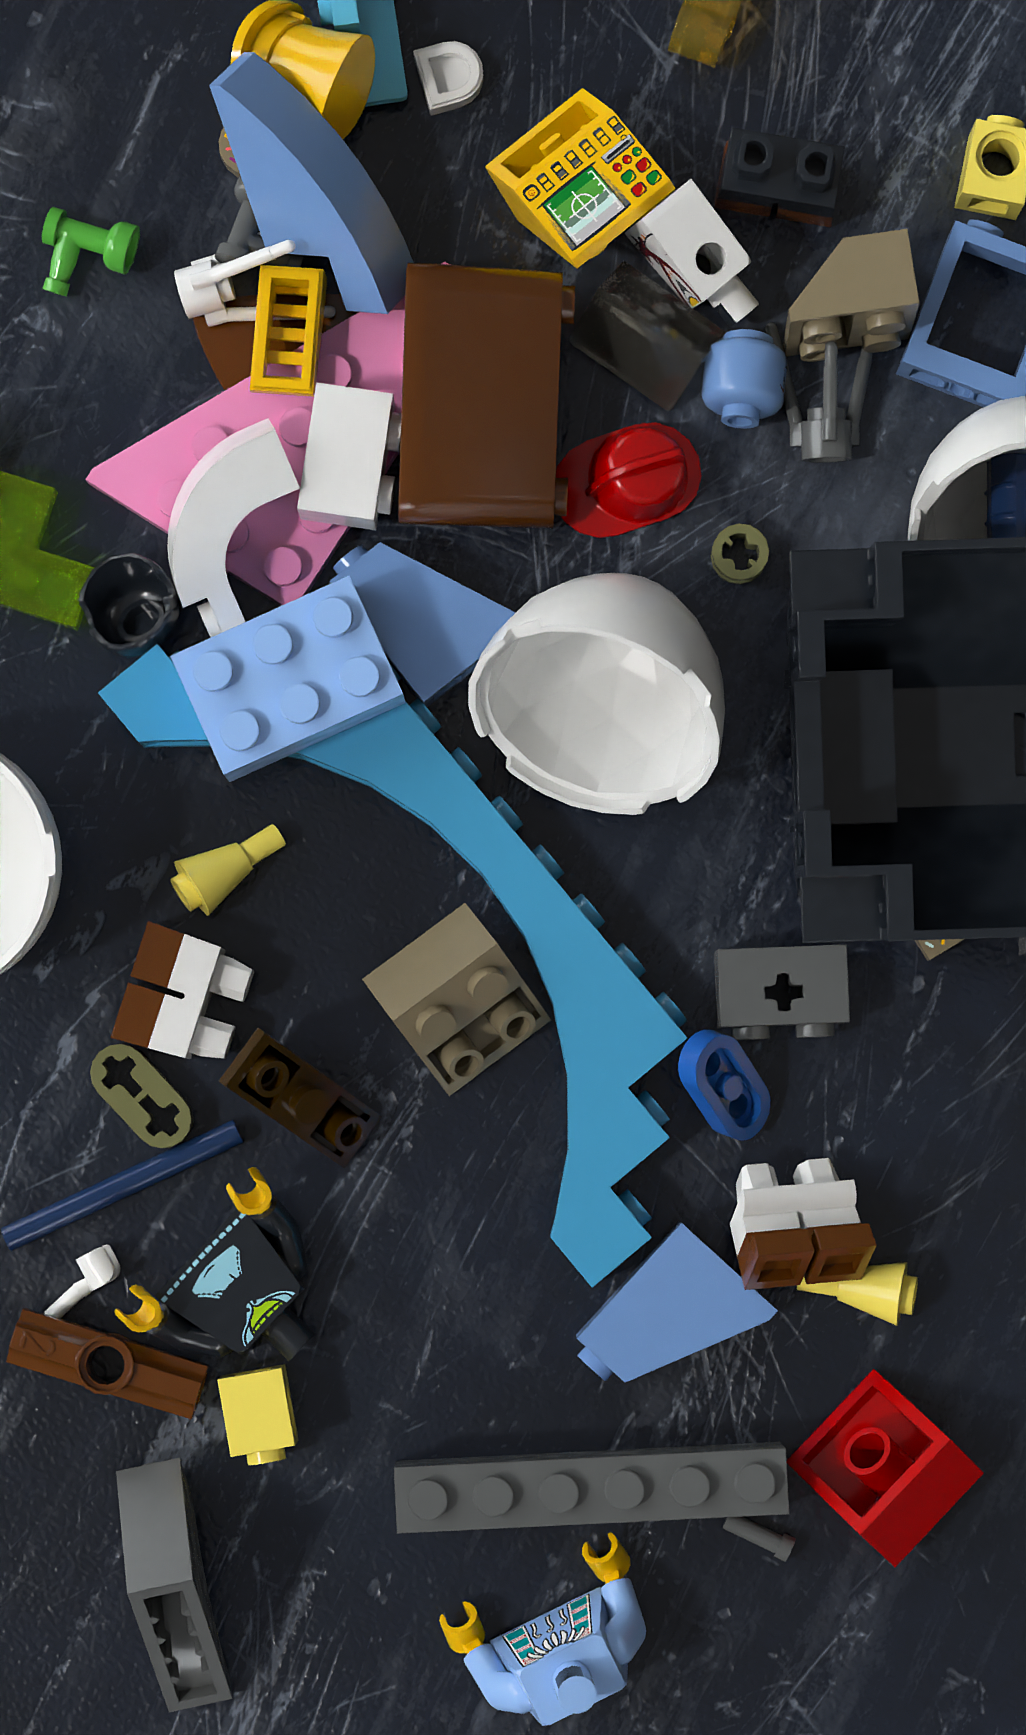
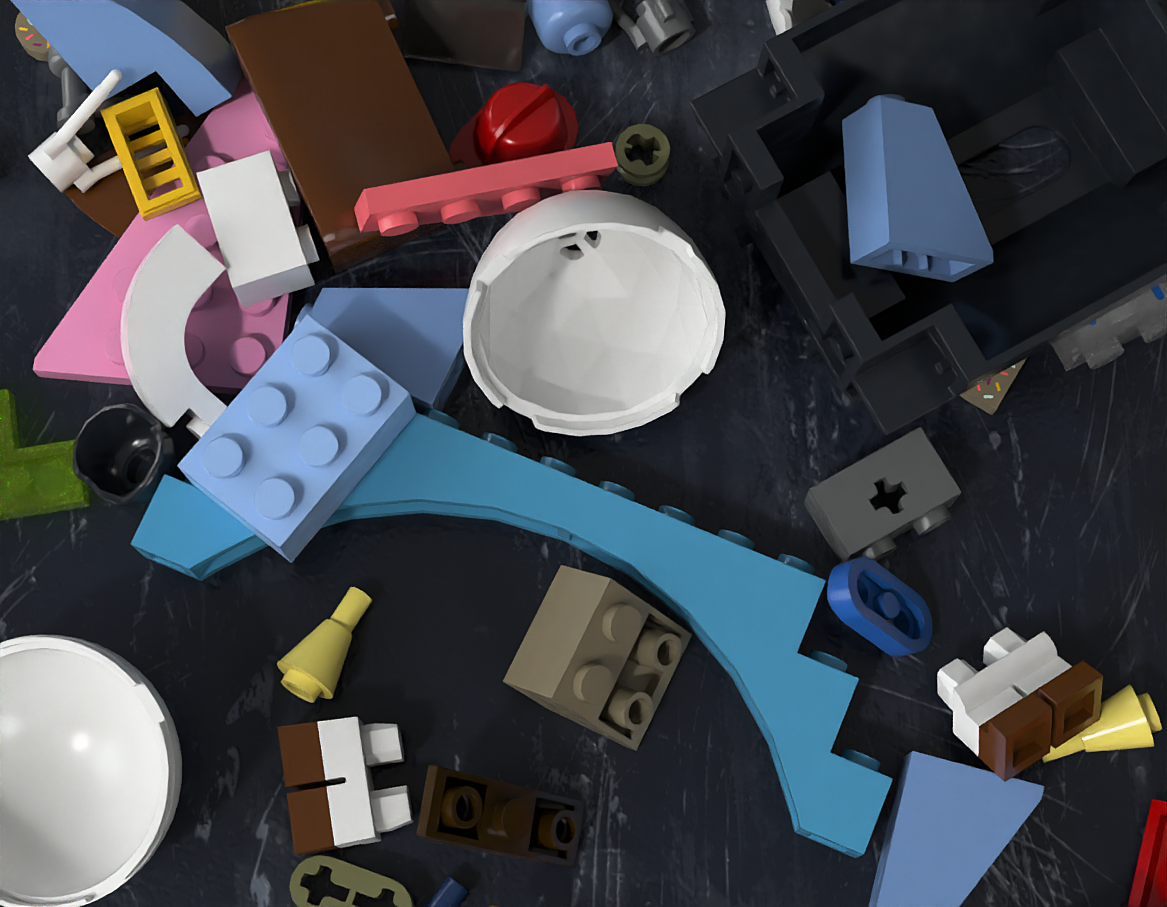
camera: 25 degrees left, 10 degrees down
(540, 532) = (482, 190): none -> coral wing
(946, 730) = (908, 195): none -> medium blue slope

